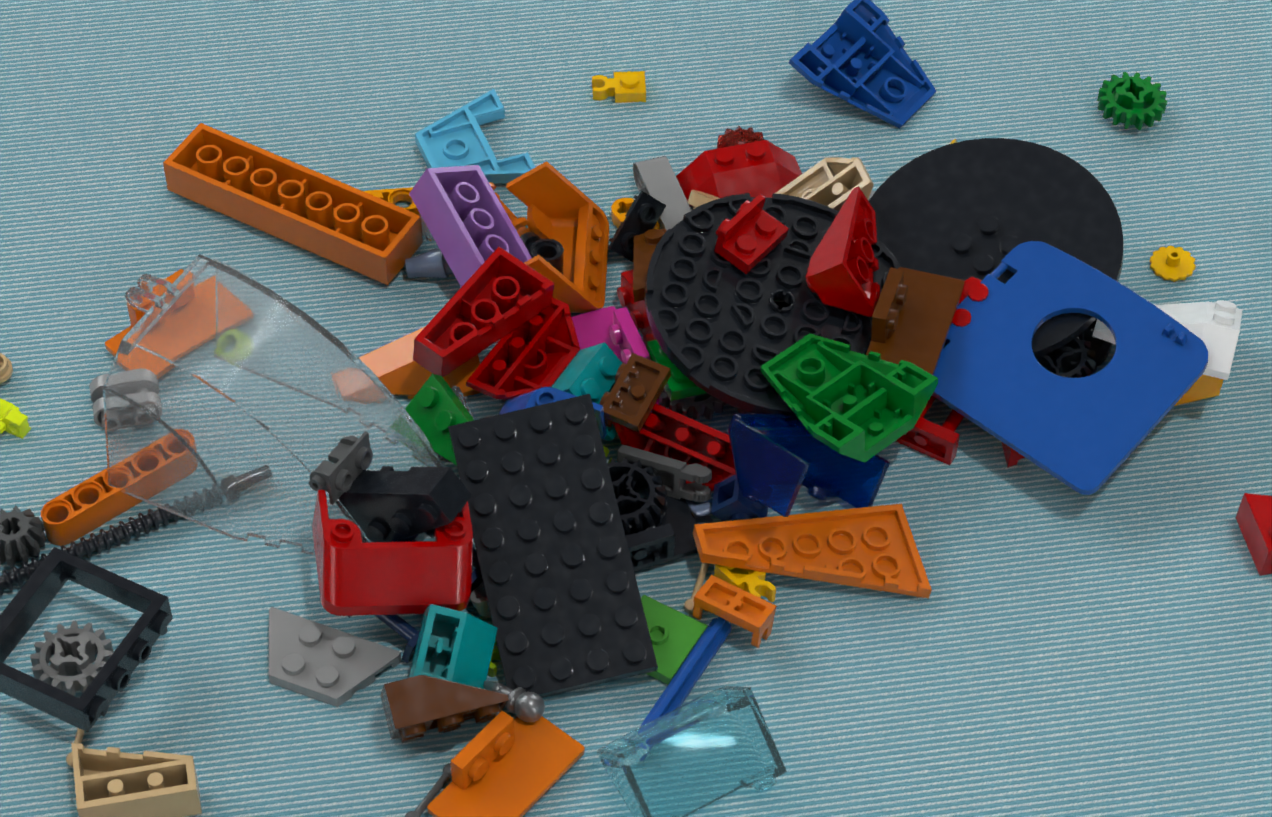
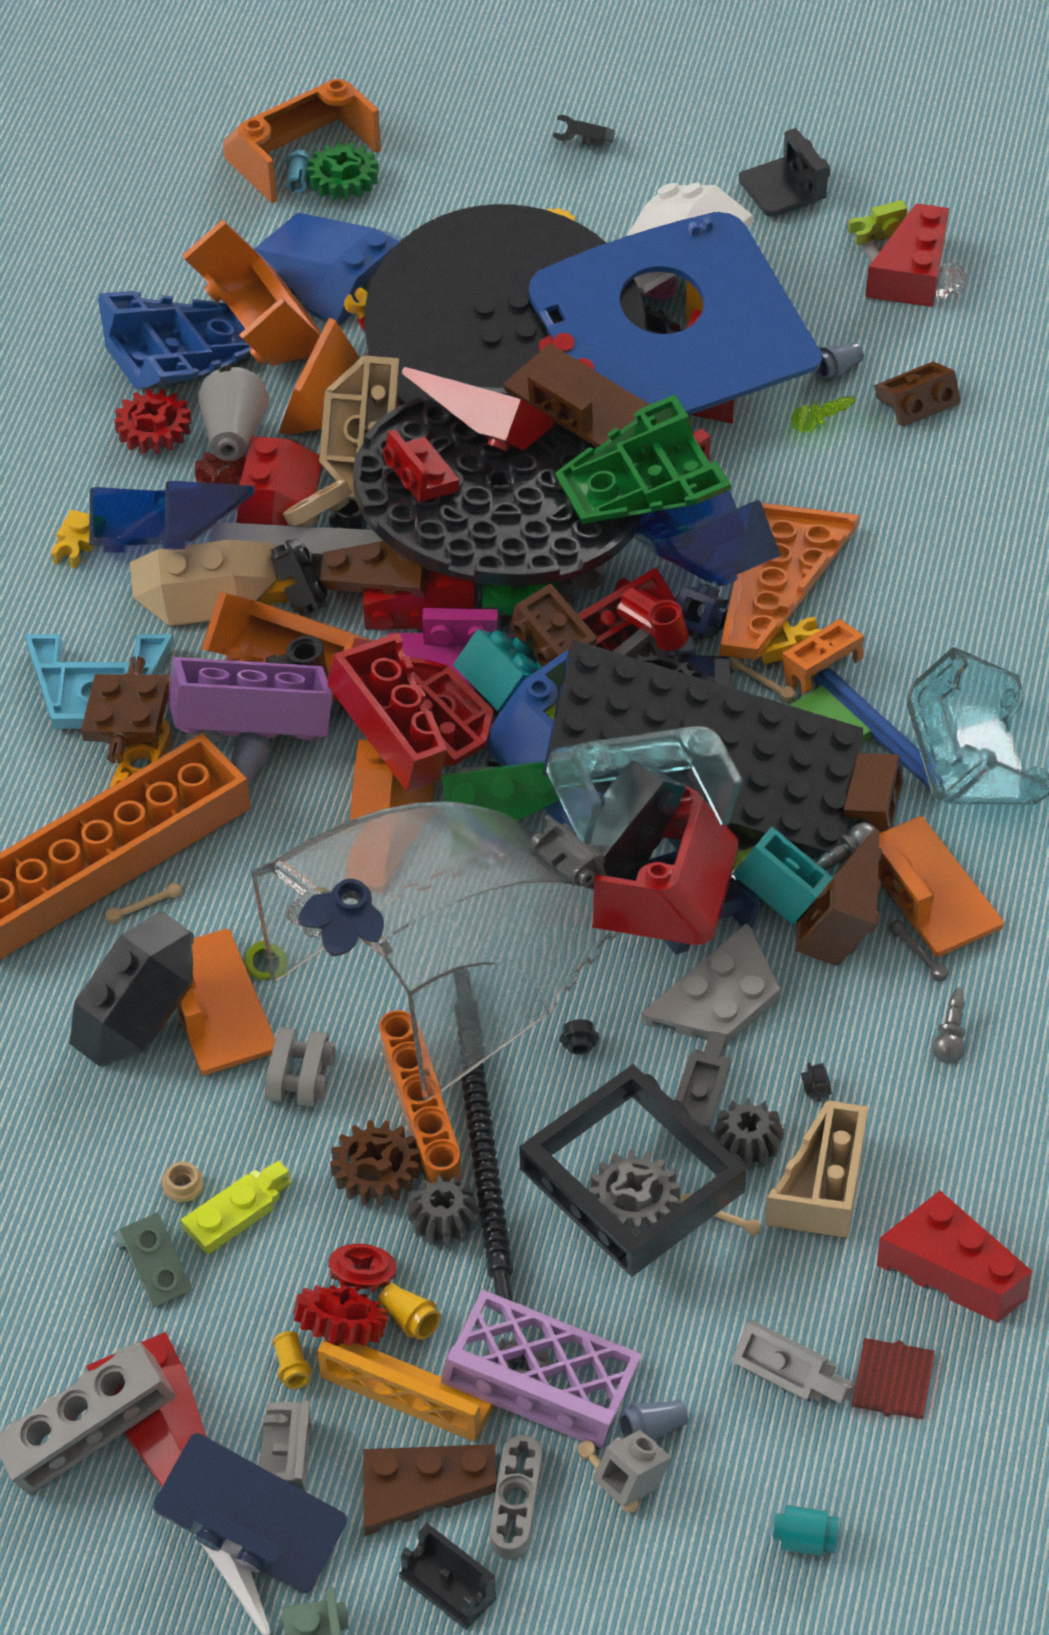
camera: 65 degrees left, 0 degrees up
(45, 475) = (374, 1160): none -> reddish brown gear
(134, 307) = (343, 922): none -> dark blue plate
(140, 251) = (133, 991): none -> black wedge
(164, 721) = (749, 1132): none -> dark grey gear
(207, 674) = (705, 1080): none -> dark grey hinge
(229, 572) = (579, 1036): none -> black plate
(243, 757) = (816, 1081): none -> black plate
(245, 243) = (114, 915): none -> tan hinge
(434, 155) = (125, 708): none -> reddish brown plate
(500, 503) = (580, 765): none -> clear light blue windscreen
(593, 703) = (875, 790): none -> reddish brown hinge
(603, 170) = (186, 583): none -> tan wedge
(646, 113) = (160, 516): none -> clear blue windscreen
(685, 460) = (656, 617): none -> red piece
(765, 84) = (153, 421): none -> red gear
(785, 120) = (232, 410): none -> light grey cone
(879, 153) = (327, 362): none -> orange slope
(942, 108) = (271, 314): none -> orange windscreen
(1031, 116) = (326, 260): none -> blue wedge
(1044, 519) = (807, 418): none -> clear neon green bar
(1105, 74) = (297, 172): none -> medium azure pin
(1124, 592) = (920, 392): none -> reddish brown bracket
(1127, 516) = (838, 360): none -> sand blue cone
(1156, 44) = (252, 140): none -> orange windscreen

